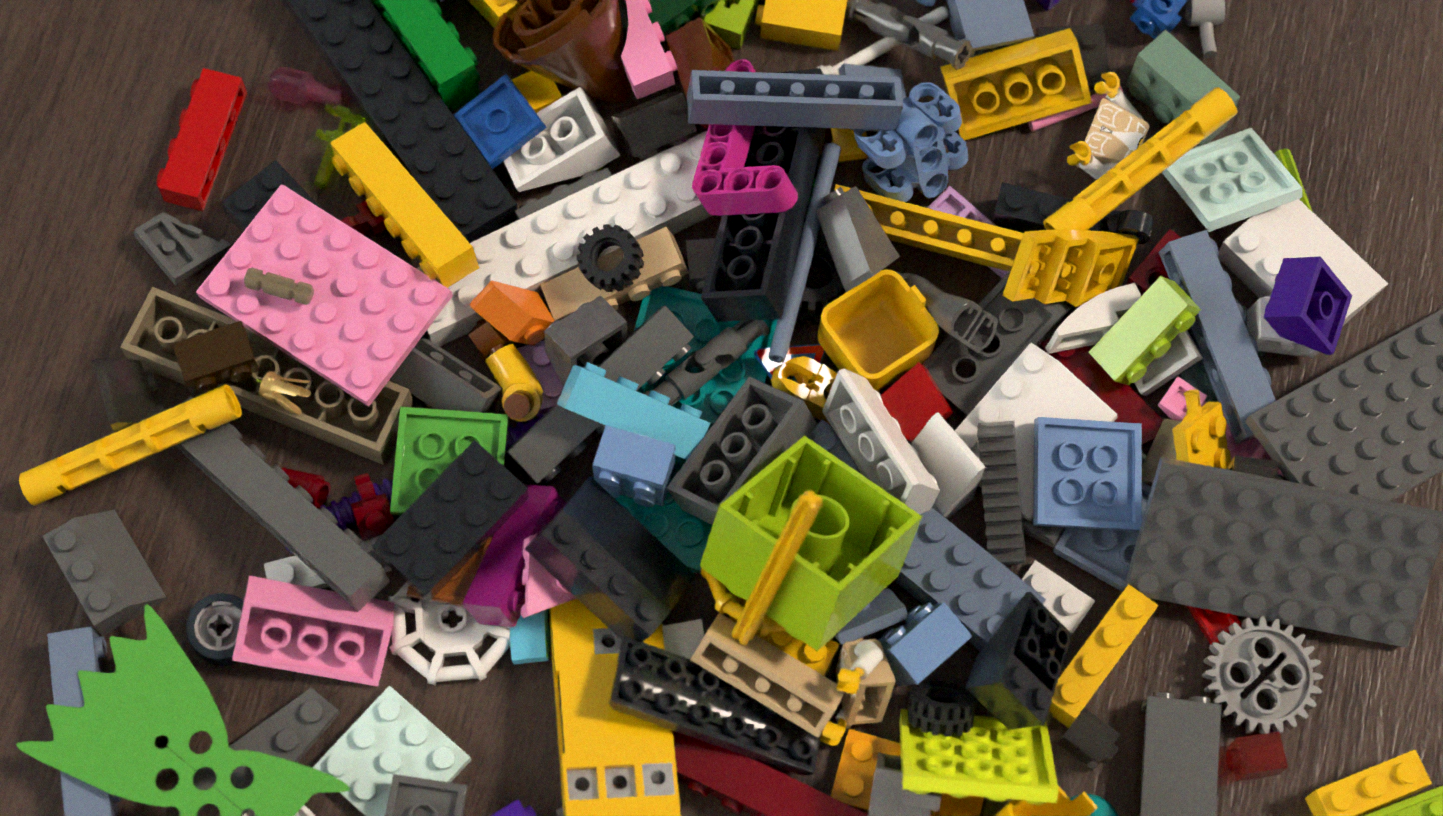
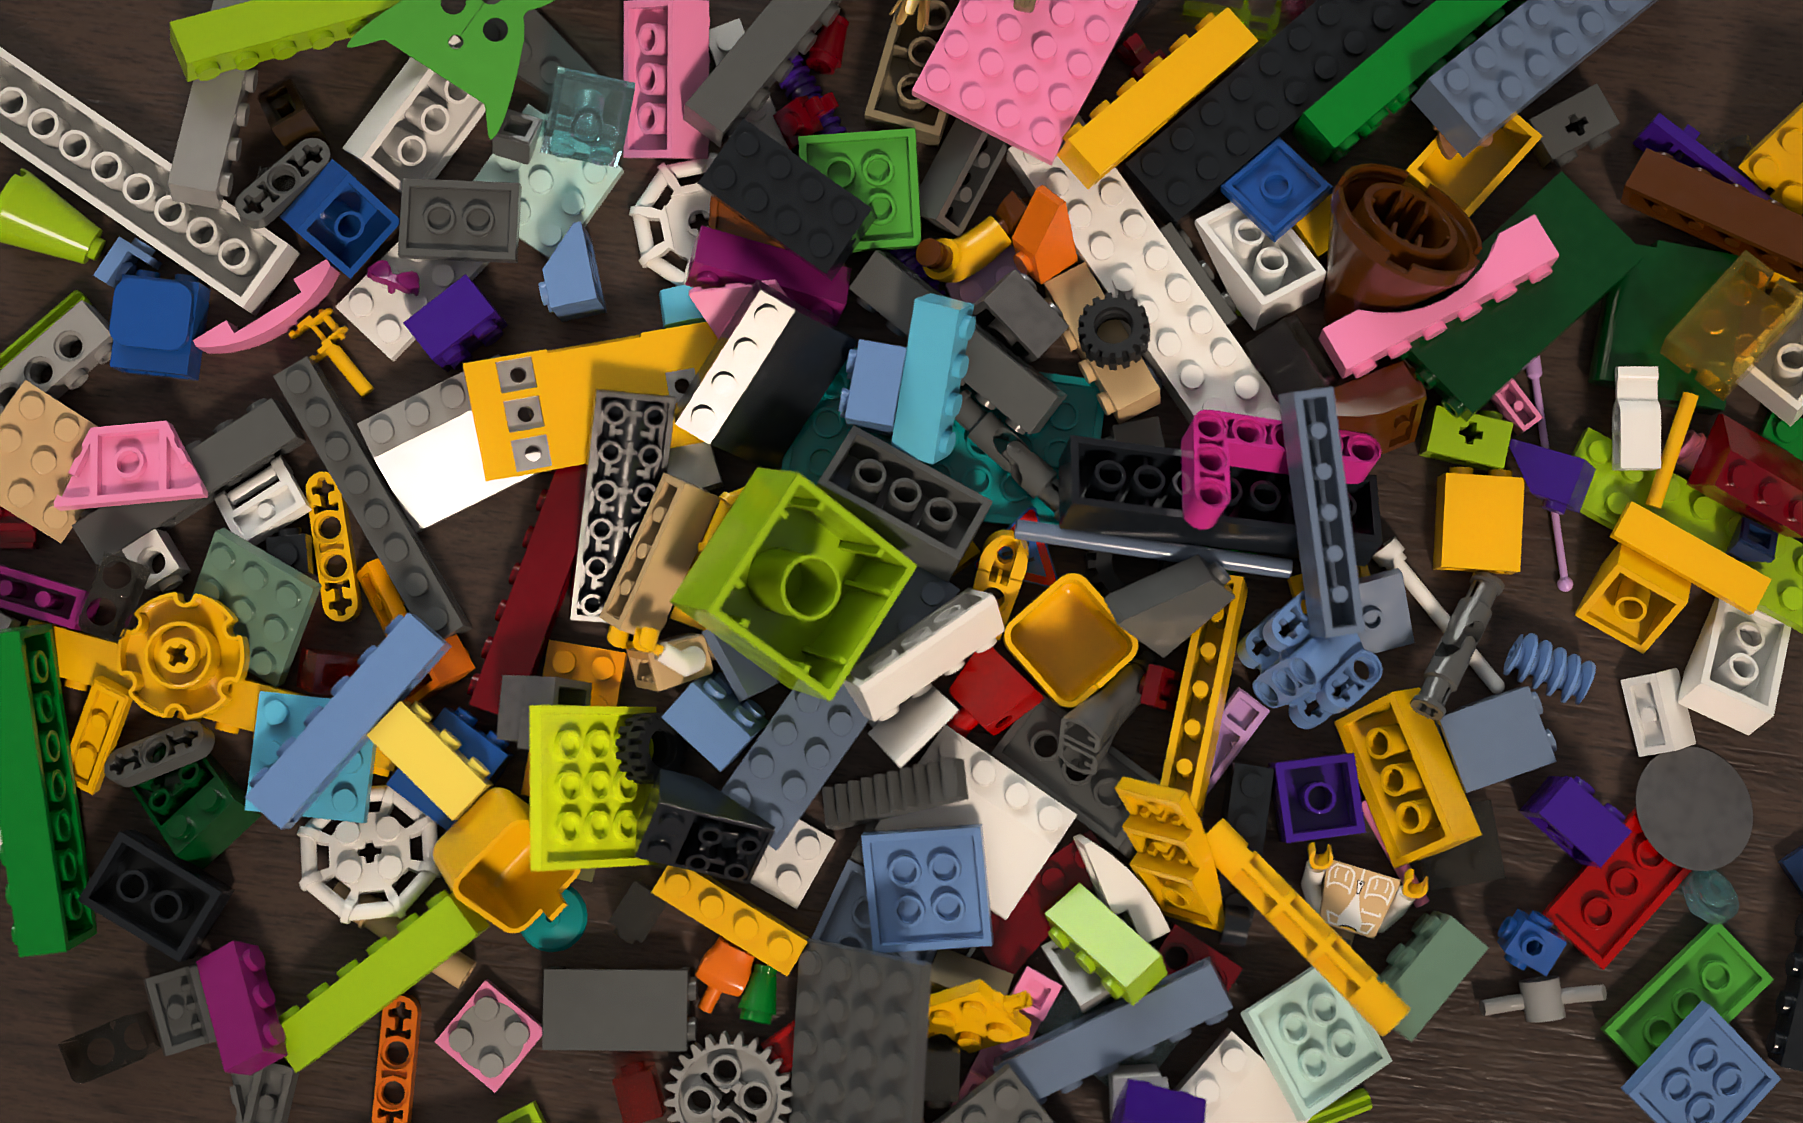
camera: 90 degrees right, 15 degrees up
(340, 703) = (587, 117): none -> clear light blue slope
(351, 772) = (517, 137): none -> dark grey slope
(491, 732) = (572, 278): none -> medium blue slope
(777, 566) = (735, 542): yellow axle -> none
(925, 264) = (1160, 688): none -> dark red plate
(1028, 153) = (1317, 798): none -> dark purple brick
(1147, 669) = (724, 970): none -> orange piece
(1172, 640) = (760, 995): none -> green cone

